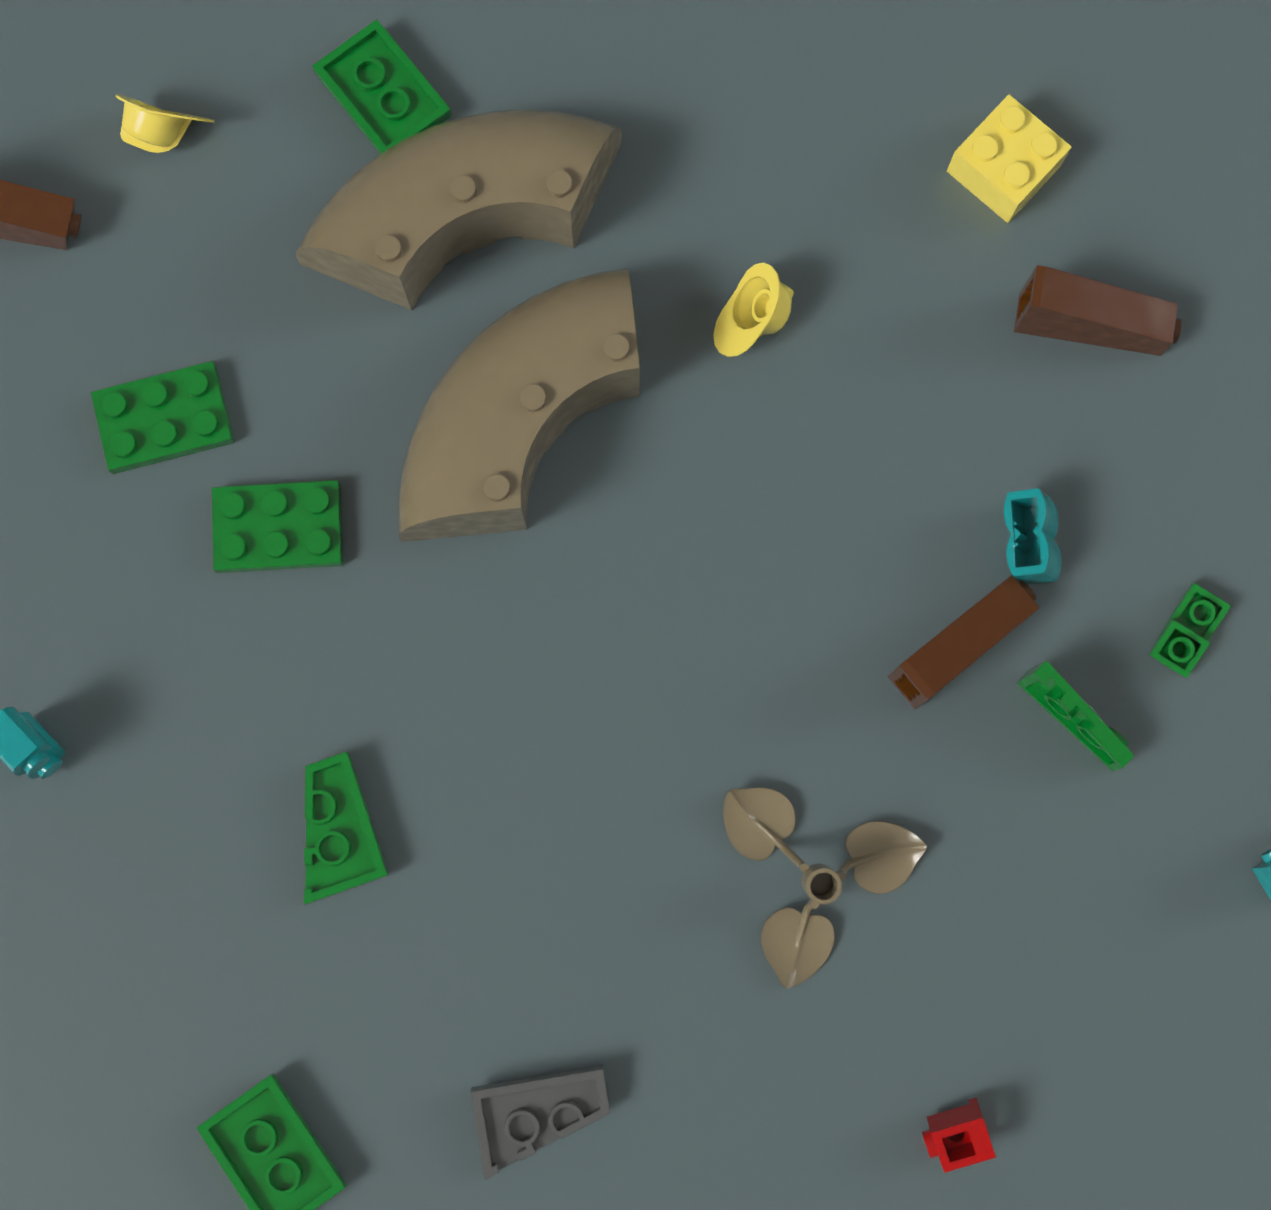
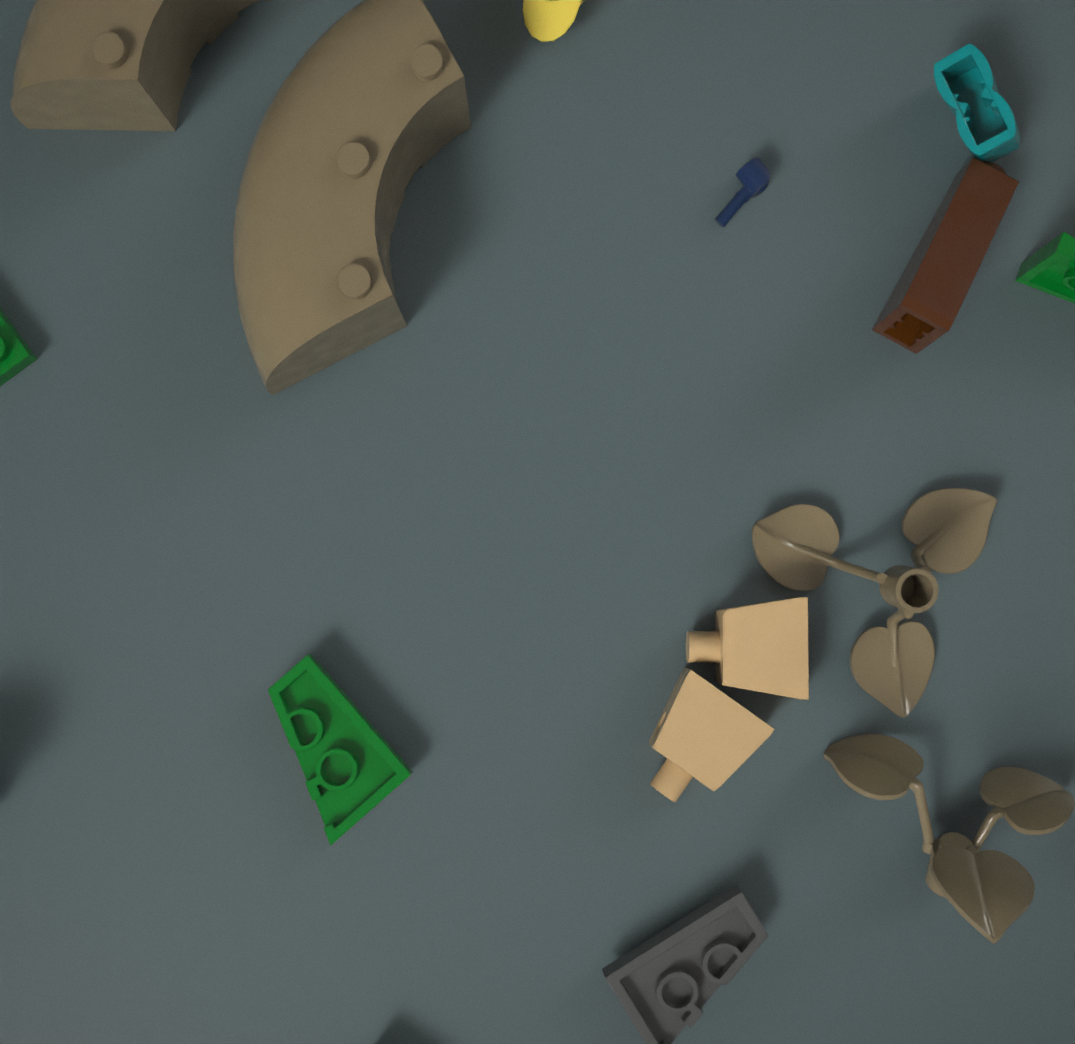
camera: 20 degrees left, 5 degrees up
(277, 526) = (123, 433): green plate -> none
(622, 938) = (703, 736): none -> tan torso
(693, 886) = (758, 647): none -> tan torso
(773, 1117) = (981, 885): none -> dark tan plant
(841, 525) = (755, 179): none -> dark blue hand

